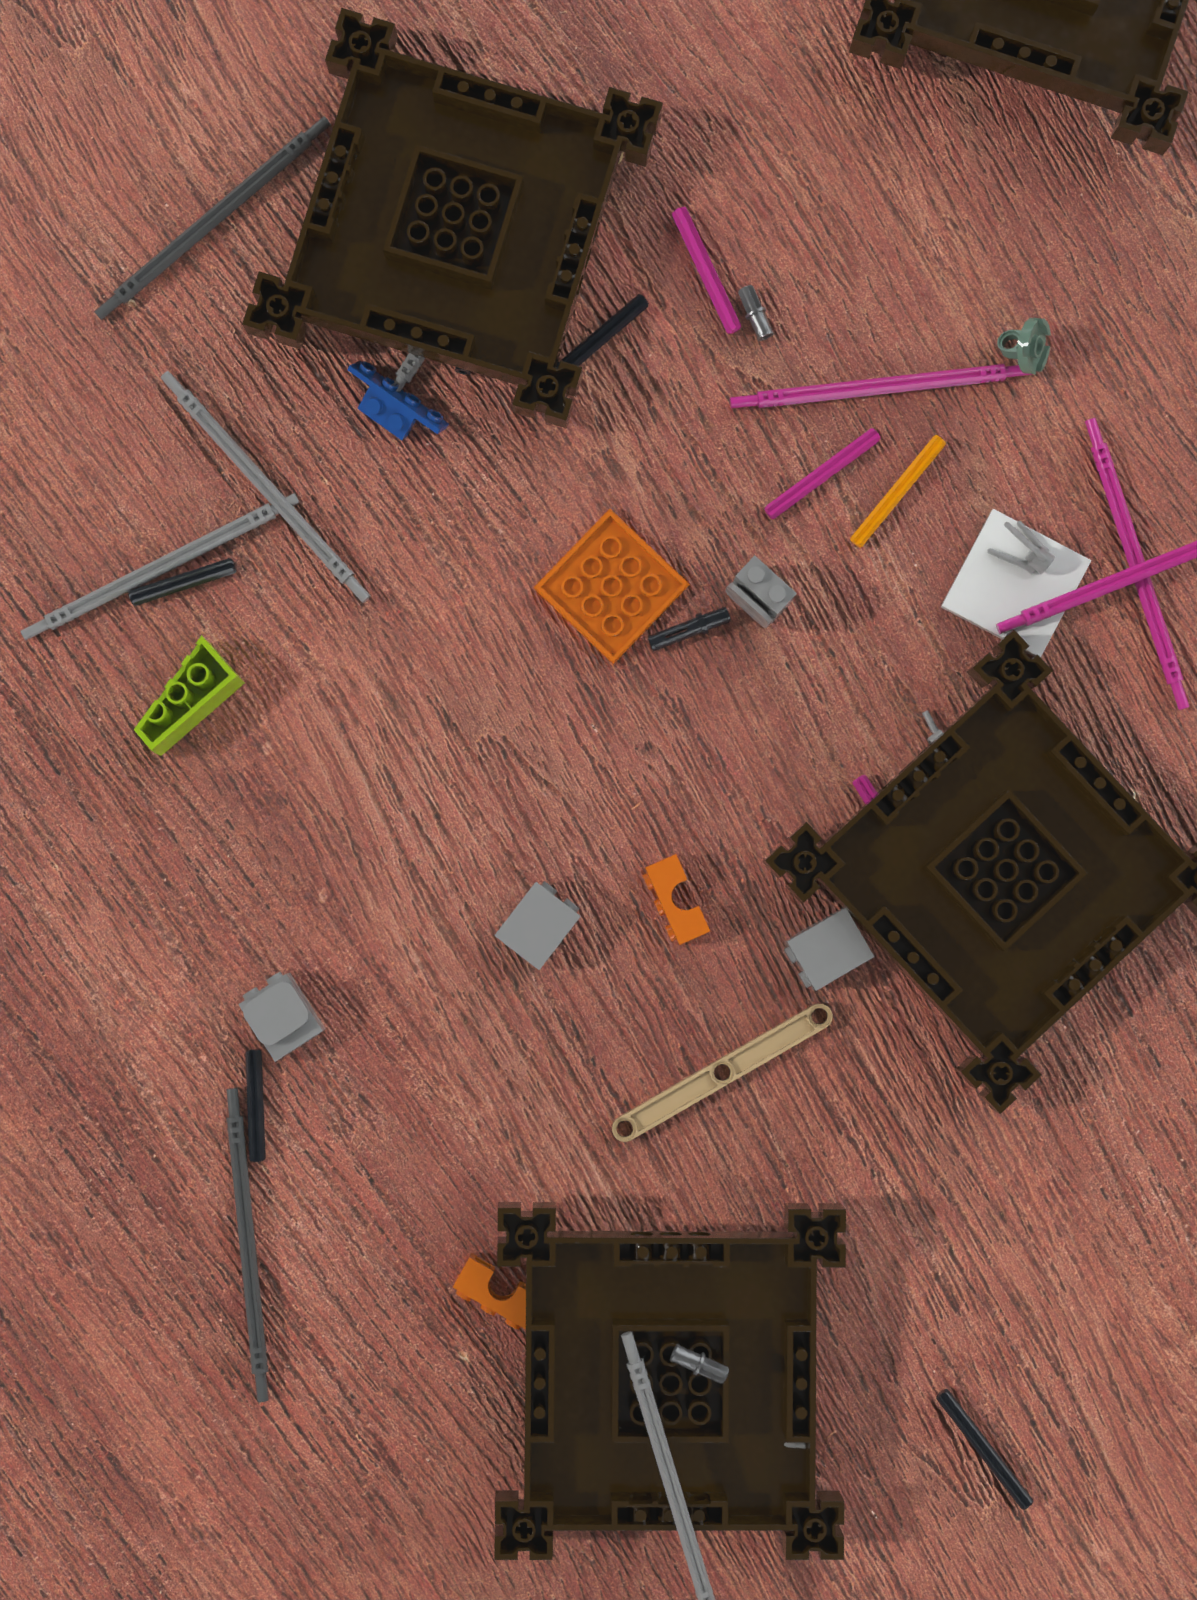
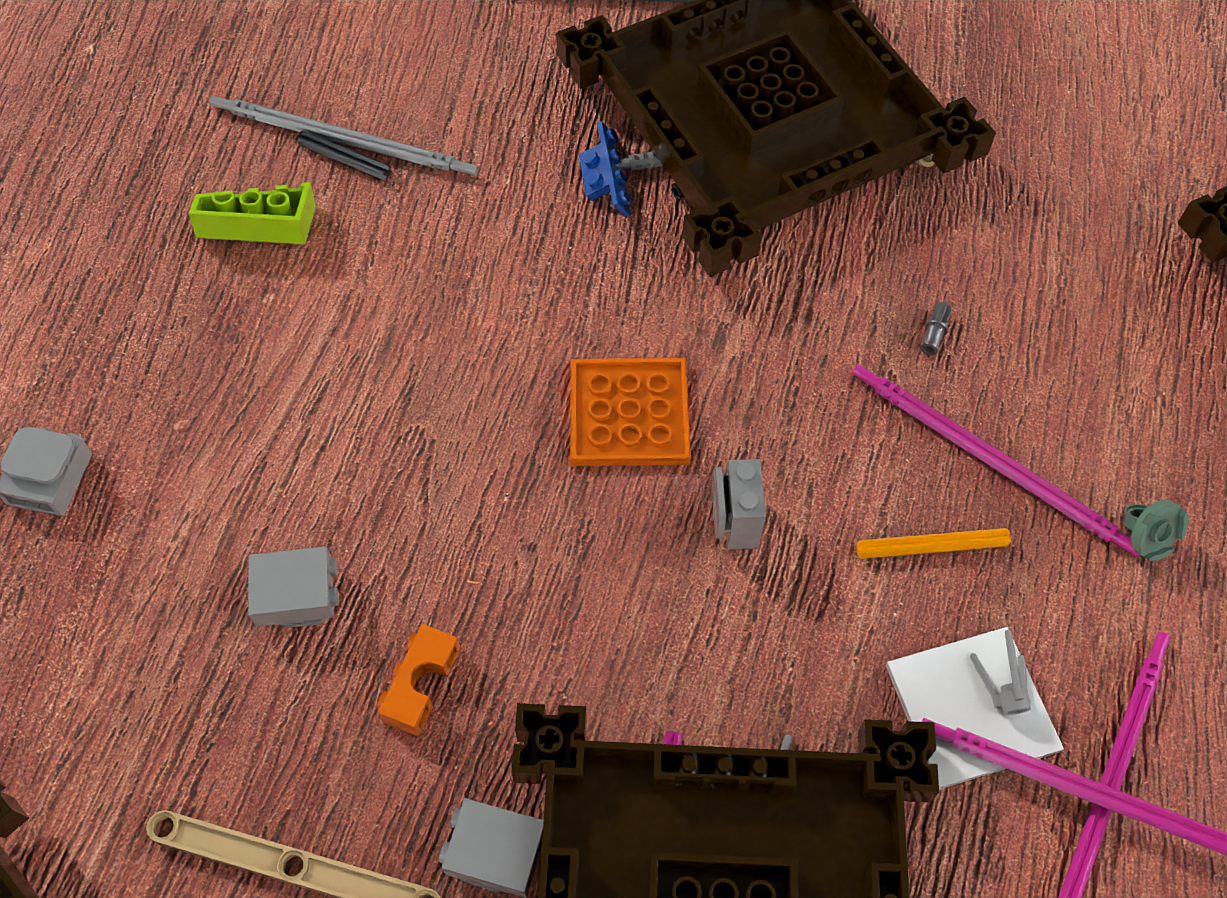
camera: 50 degrees right, 25 degrees down
(265, 486) = (463, 153): light grey axle -> none
(606, 331) = (806, 250): black axle -> none
(693, 627) = (663, 492): black pin -> none
(706, 270) = (924, 274): dark pink axle -> none
(822, 473) = (881, 477): dark pink axle -> none

